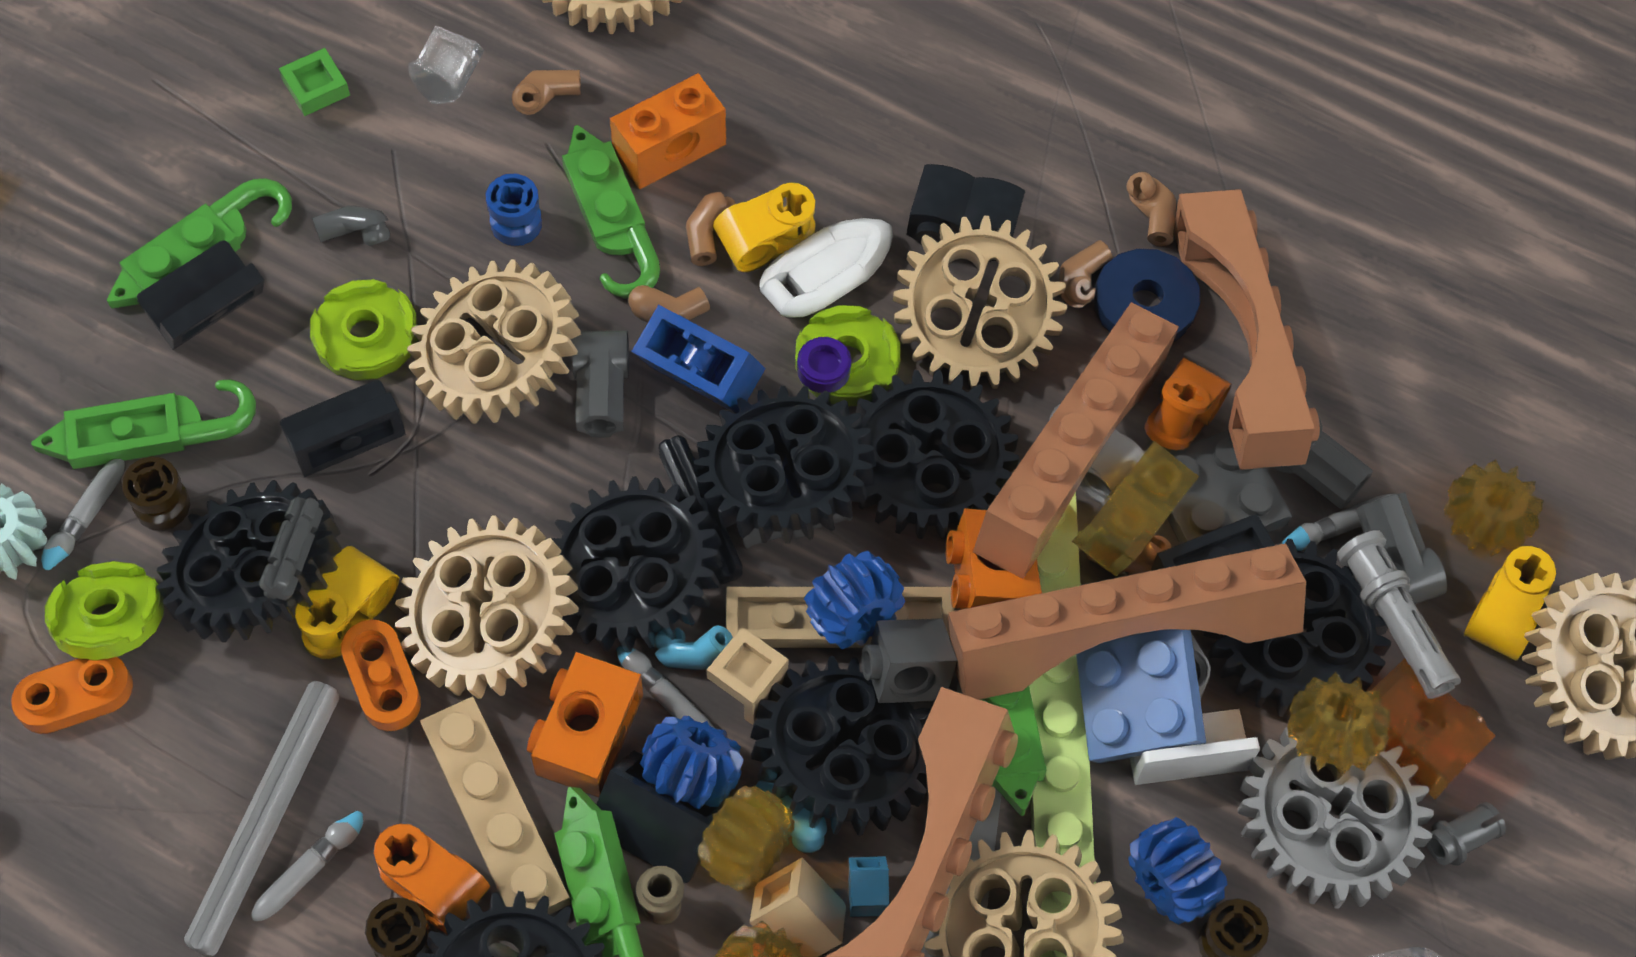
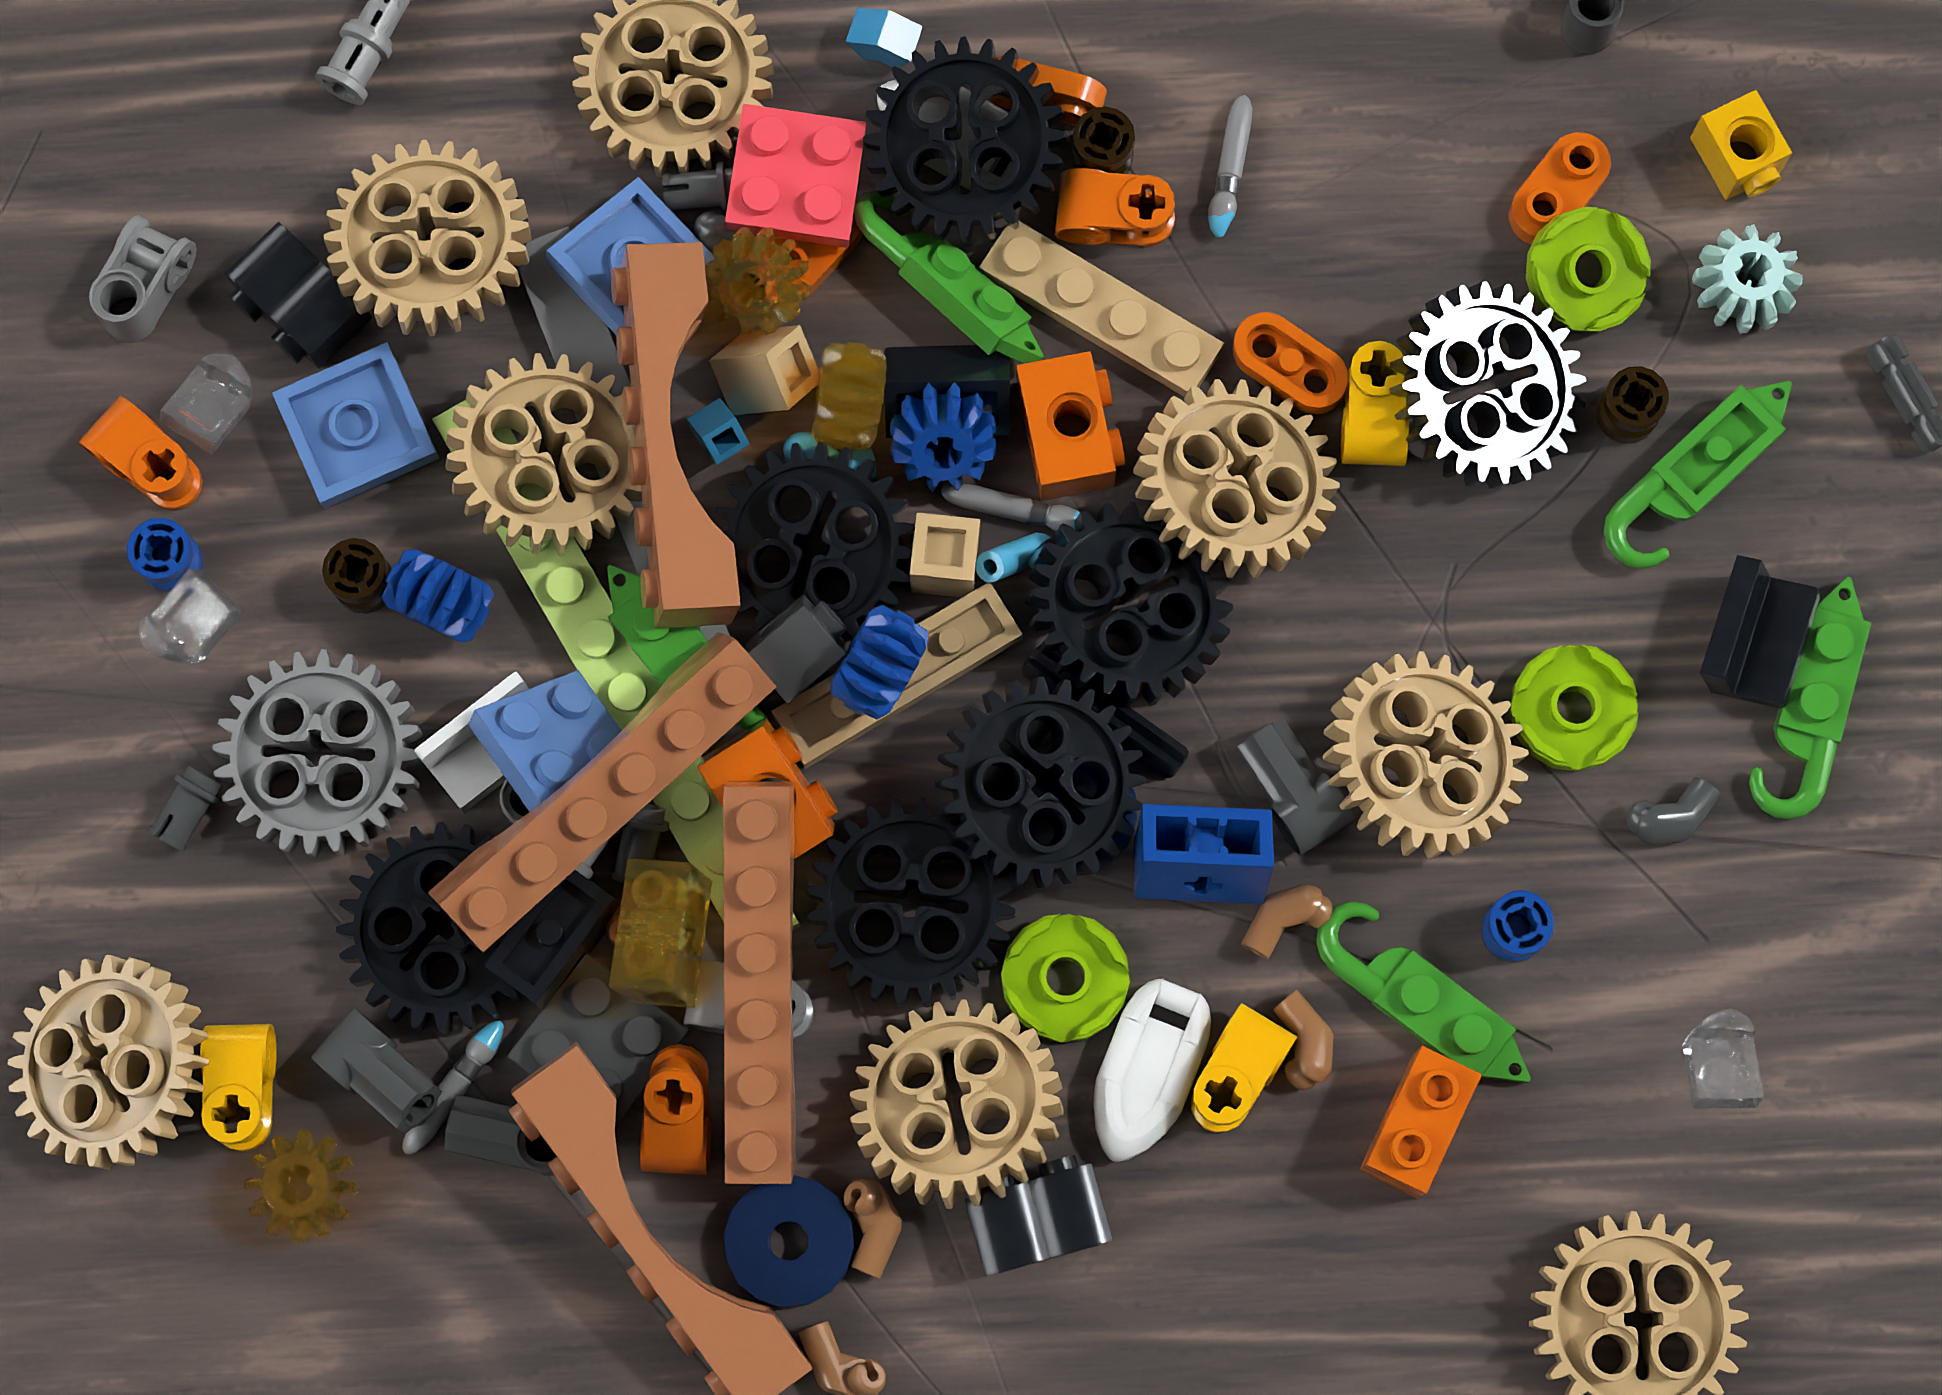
camera: 155 degrees right, 15 degrees up
(80, 517) = (1685, 313): light grey piece -> none
(261, 819) = (1302, 184): light grey axle -> none
(291, 548) = (1440, 388): dark grey axle -> none
(314, 81) = (1845, 957): bright green plate -> none
(343, 427) = (1517, 589): black panel -> none
(542, 86) = (1602, 1107): medium nougat arm -> none
(660, 881) = (884, 301): dark tan pin -> none
(824, 364) = (1076, 935): dark purple tile -> none
(1339, 723) = (333, 829): clear yellow gear -> none
(1387, 591) = (364, 991): light grey pin -> none
(1443, 748) = (243, 867): clear orange brick -> none

